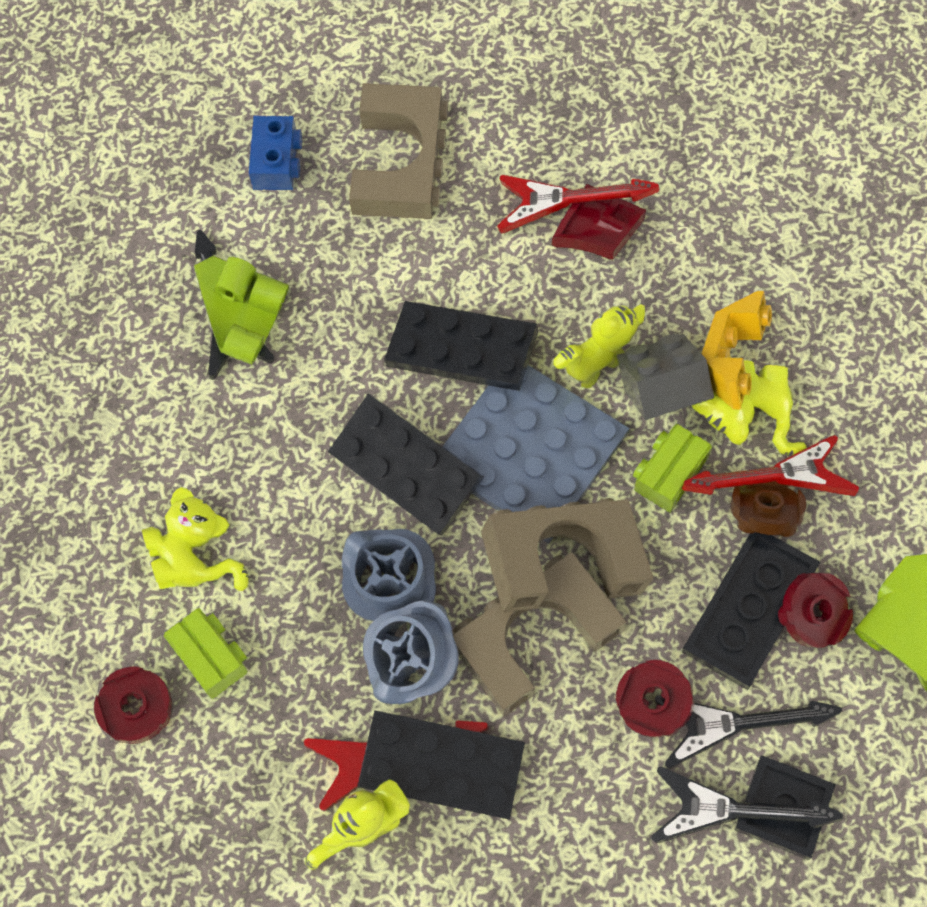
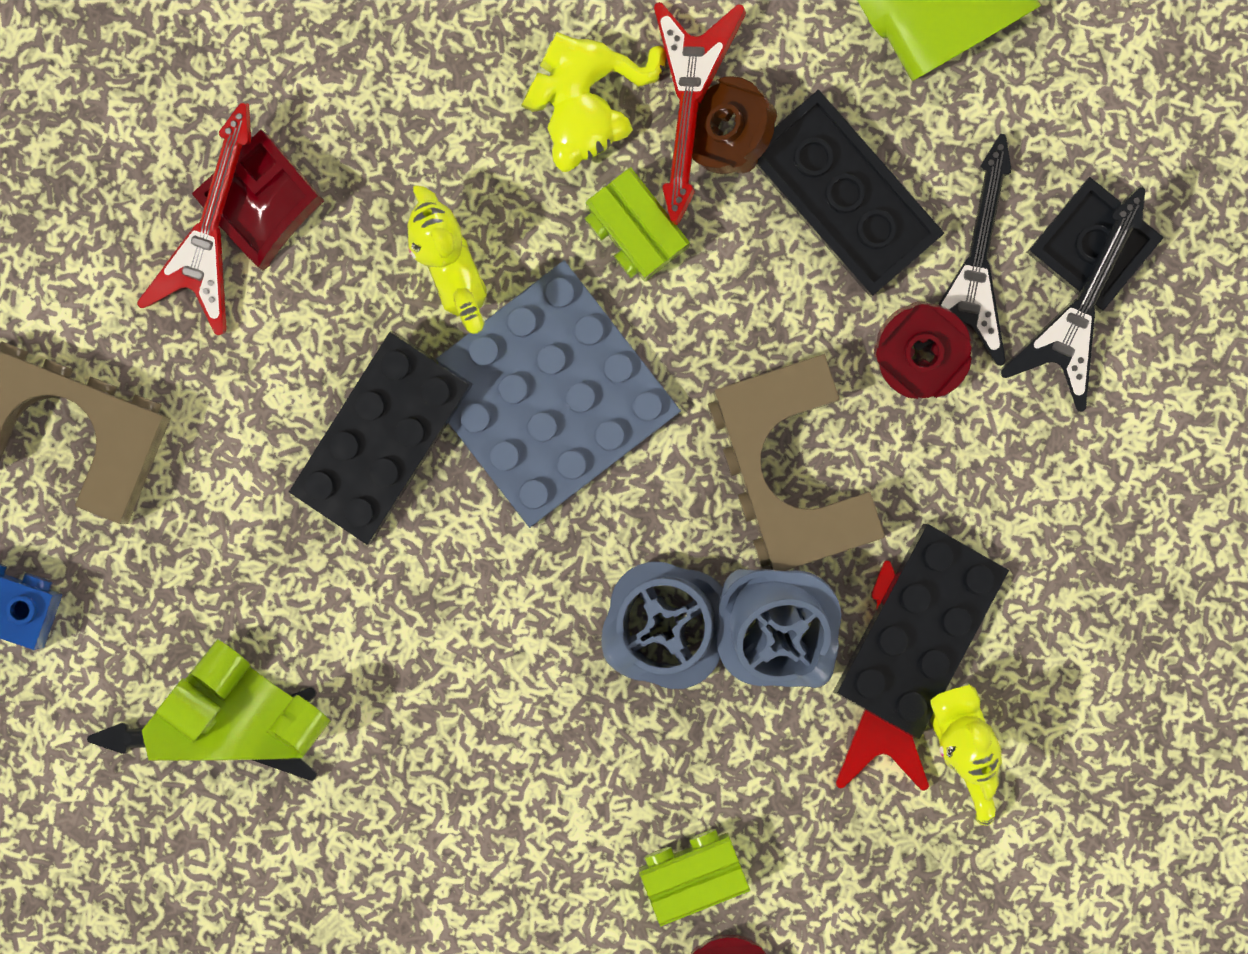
camera: 75 degrees left, 20 degrees up
(189, 525) = (518, 858): neon yellow animal -> none
(405, 464) = (523, 560): black plate -> none
(601, 527) = (696, 337): dark tan arch -> none
(665, 376) = (520, 192): dark grey piece -> none
(737, 321) = (464, 63): yellow slope -> none
(798, 610) = (863, 133): dark red plate -> none

